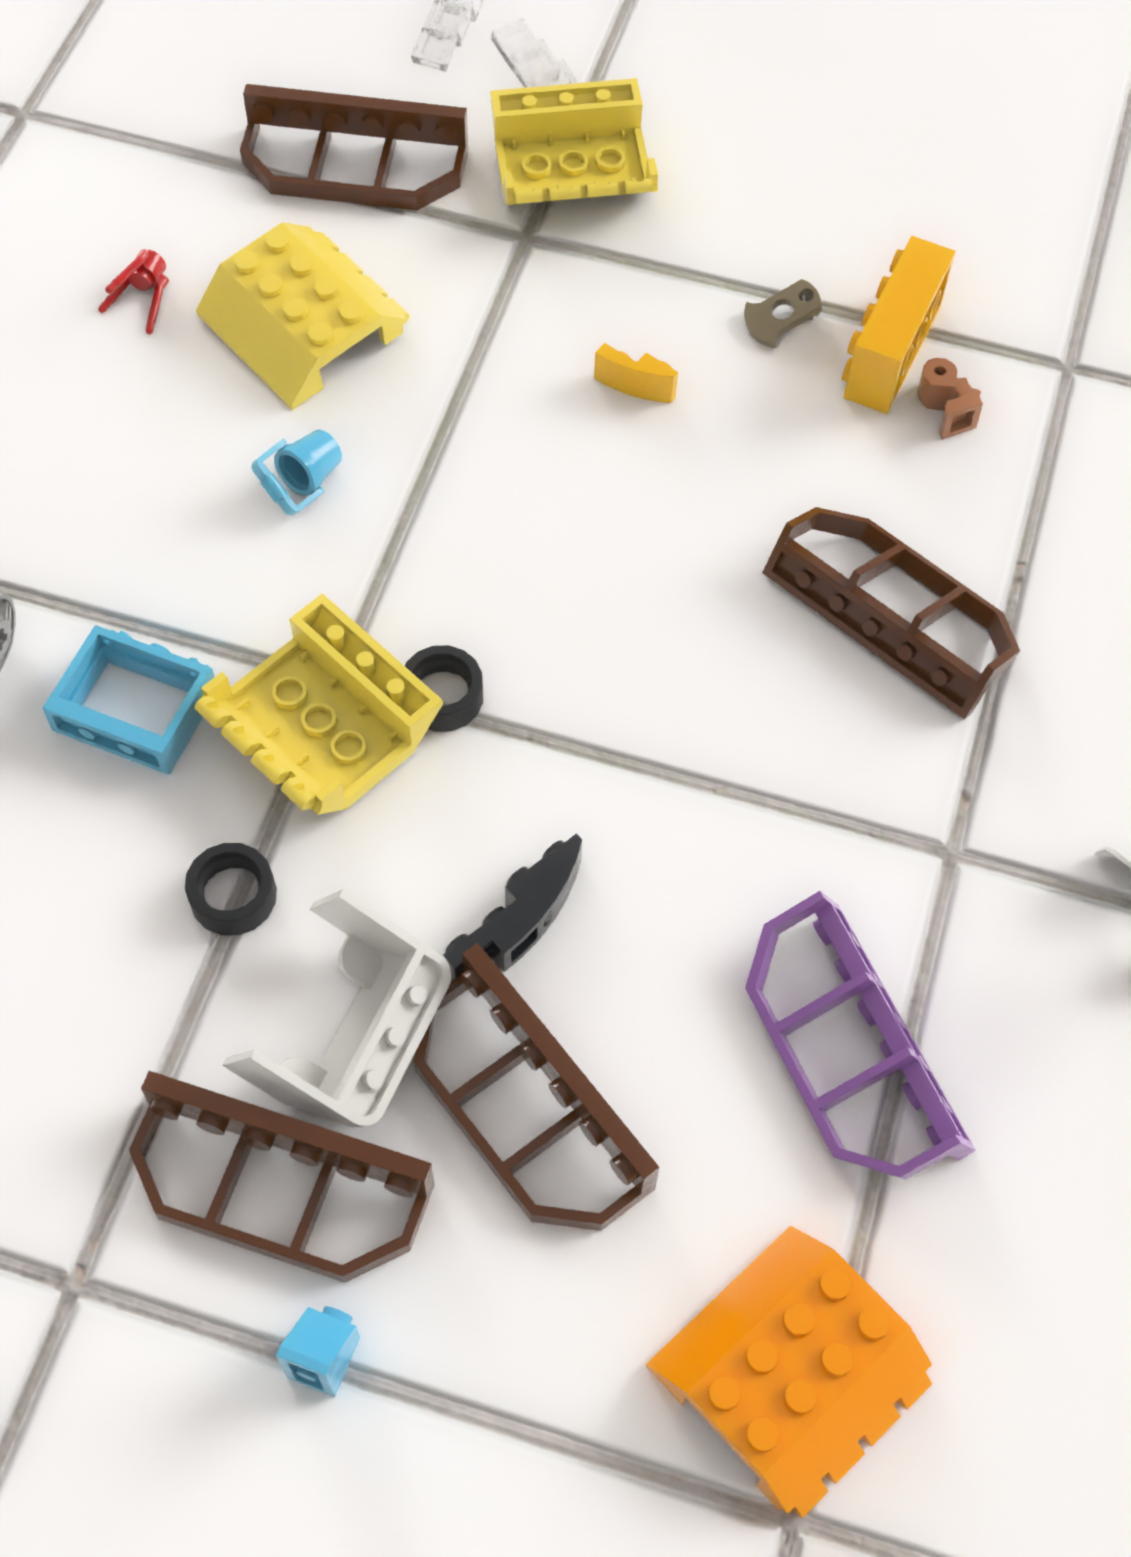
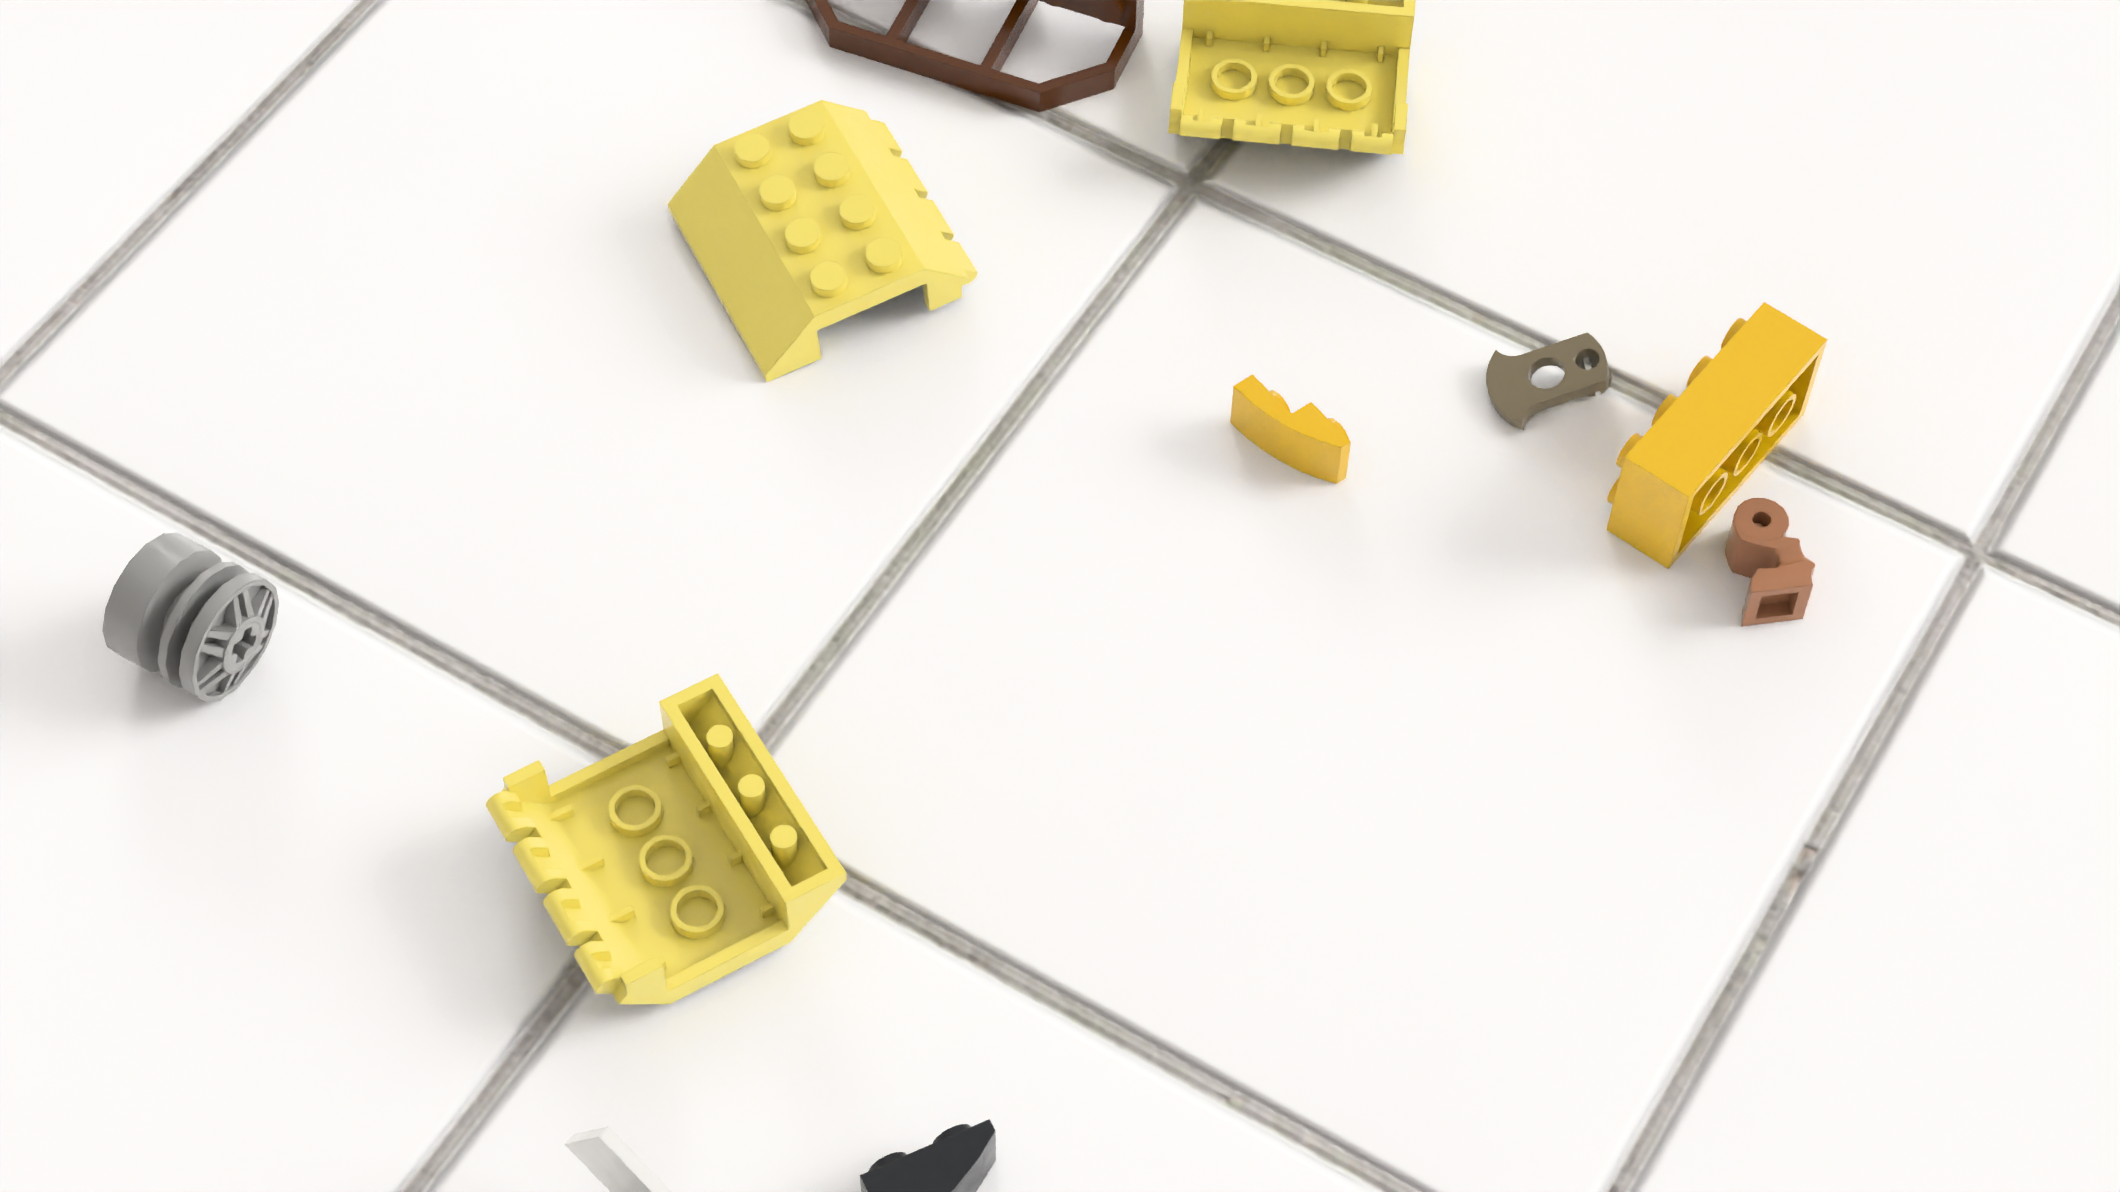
camera: 15 degrees right, 5 degrees down
(113, 735) = (385, 684): medium azure window -> none
(142, 273) = (606, 135): red plant -> none
(219, 859) = (445, 1043): black tyre -> none
(300, 466) = (750, 471): medium azure piece -> none
(456, 661) = (881, 810): black tyre -> none
(879, 627) = (1549, 902): reddish brown plate -> none

